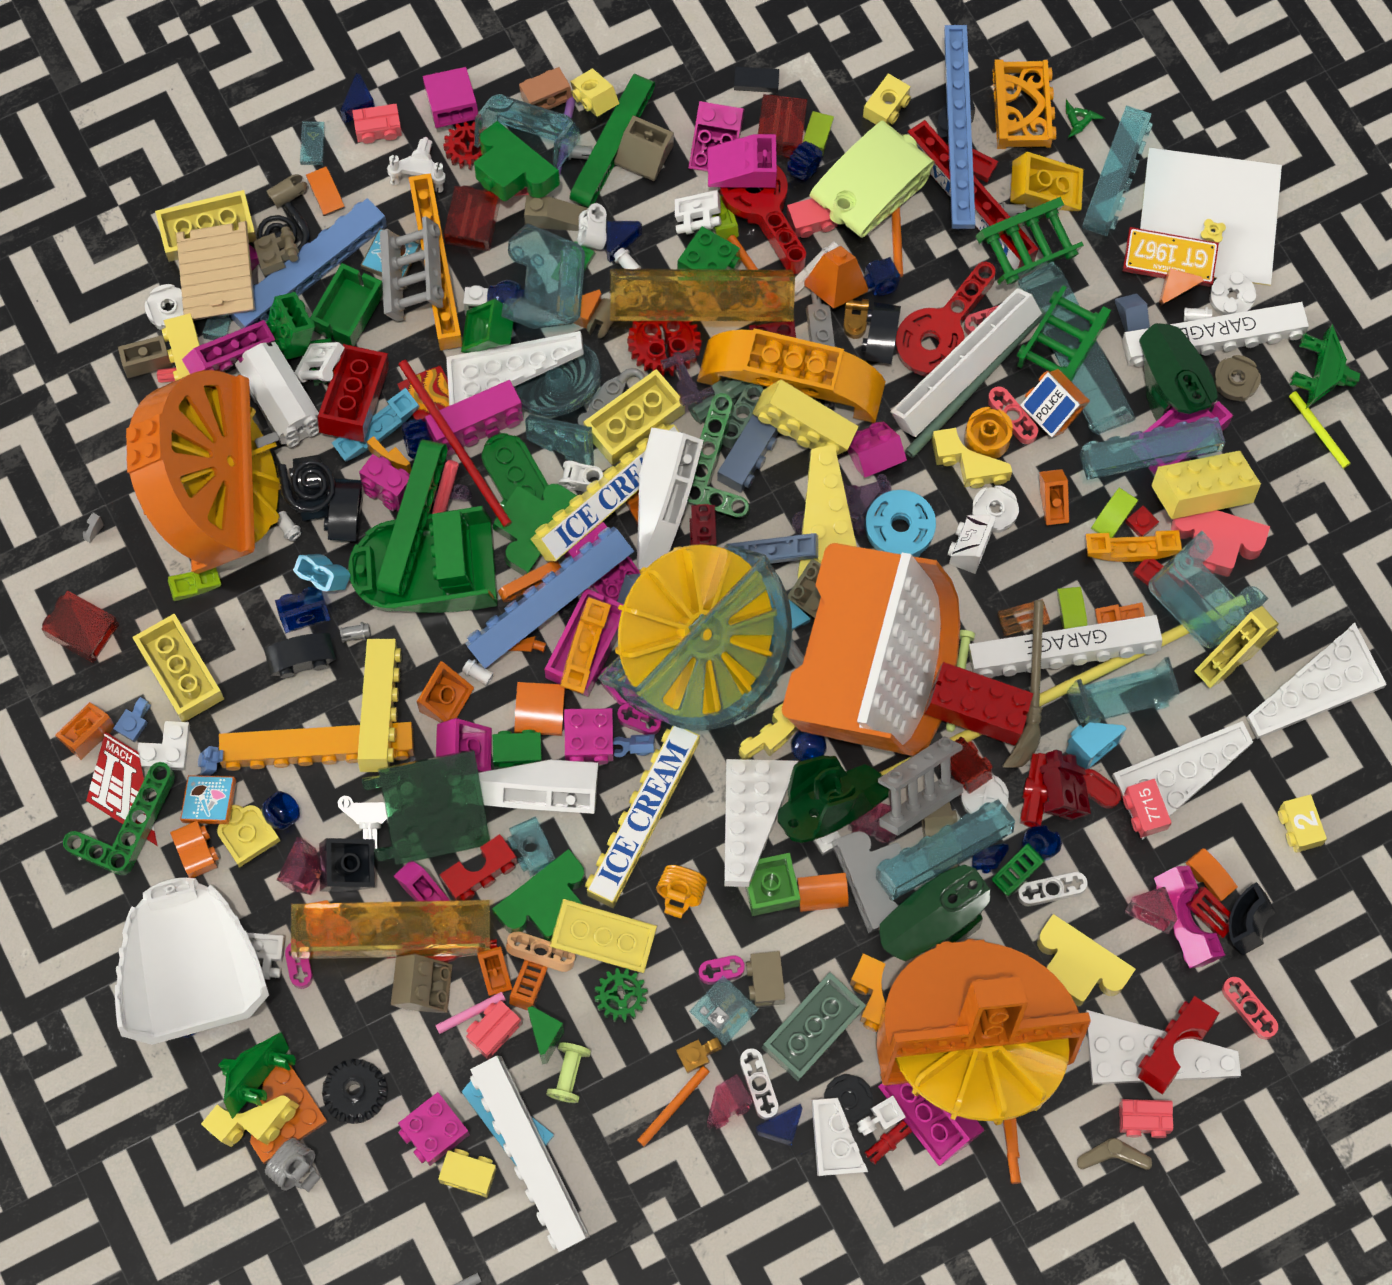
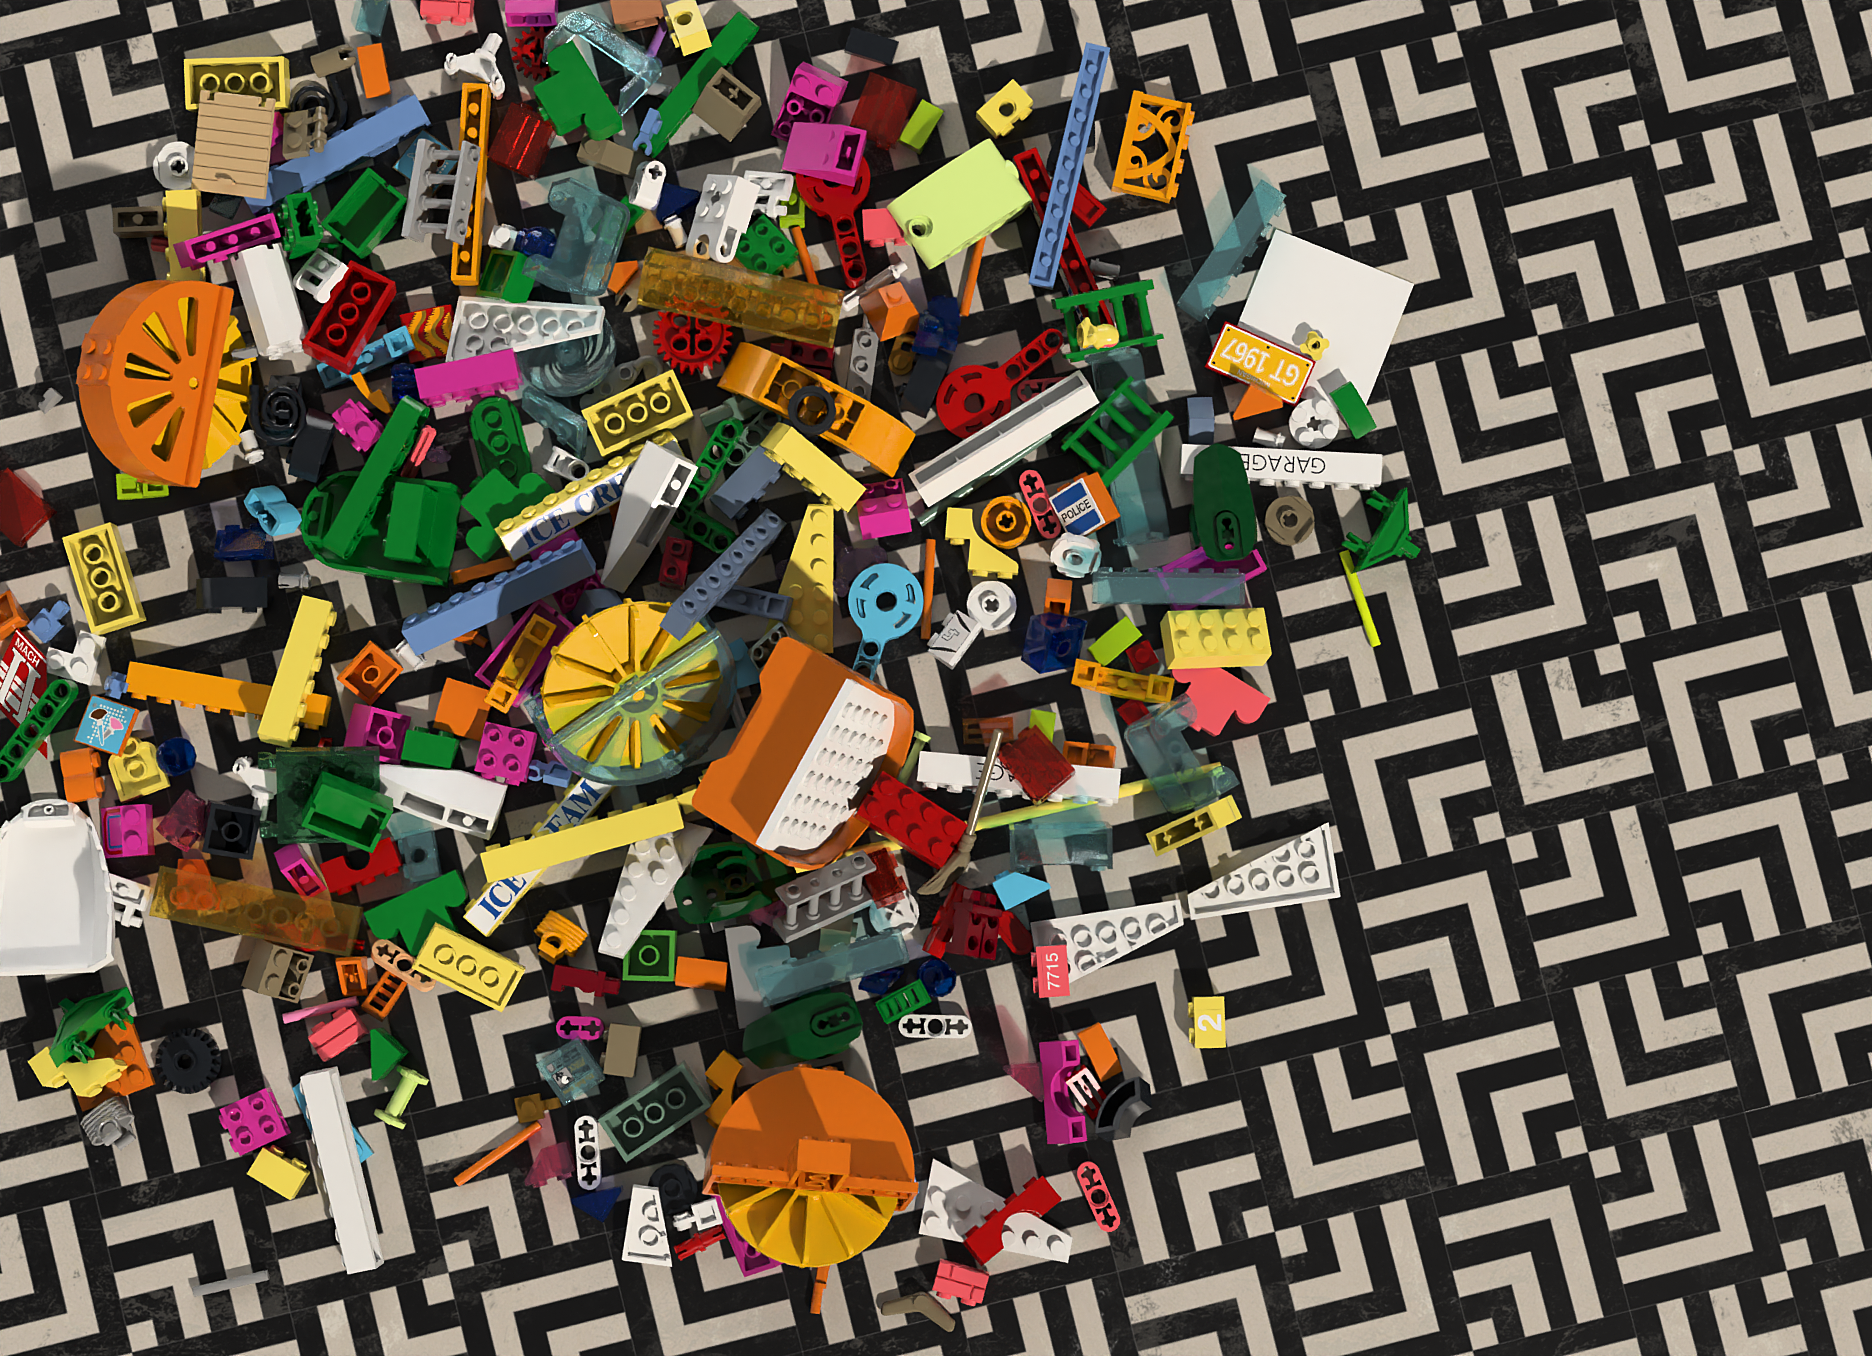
camera: 15 degrees right, 15 degrees up
(249, 889) = (127, 831): none -> dark pink slope
(293, 970) = (154, 923): dark pink beam -> none
(455, 444) = (437, 407): red piece -> none
(457, 813) = (347, 812): none -> green piece
(584, 175) = (649, 127): none -> medium blue plate
(630, 994) = (472, 1042): green gear -> none
(666, 232) = (721, 216): none -> white brick
(682, 791) = (582, 840): none -> light yellow brick
(686, 386) = (700, 396): clear purple axle -> none
(716, 920) = (584, 979): none -> dark red hips
(753, 517) = (722, 574): none -> sand blue brick
(800, 348) = (814, 429): none -> black tyre
(805, 160) = (895, 160): clear blue gear -> none
(877, 290) = (930, 335): none -> clear blue brick
(931, 499) = (928, 588): none -> orange bar
(1026, 252) = (1099, 336): none -> light yellow animal
(1044, 179) = (1150, 248): yellow slope -> none
(1059, 434) = (1071, 544): none -> white plate
(1061, 523) = (1053, 642): none -> clear blue slope
(1076, 124) = (1206, 185): green piece -> none
(1079, 626) = (1035, 764): none -> clear red brick
(1081, 961) = (939, 1111): light yellow brick -> none
(1264, 274) = (1353, 410): none -> green slope

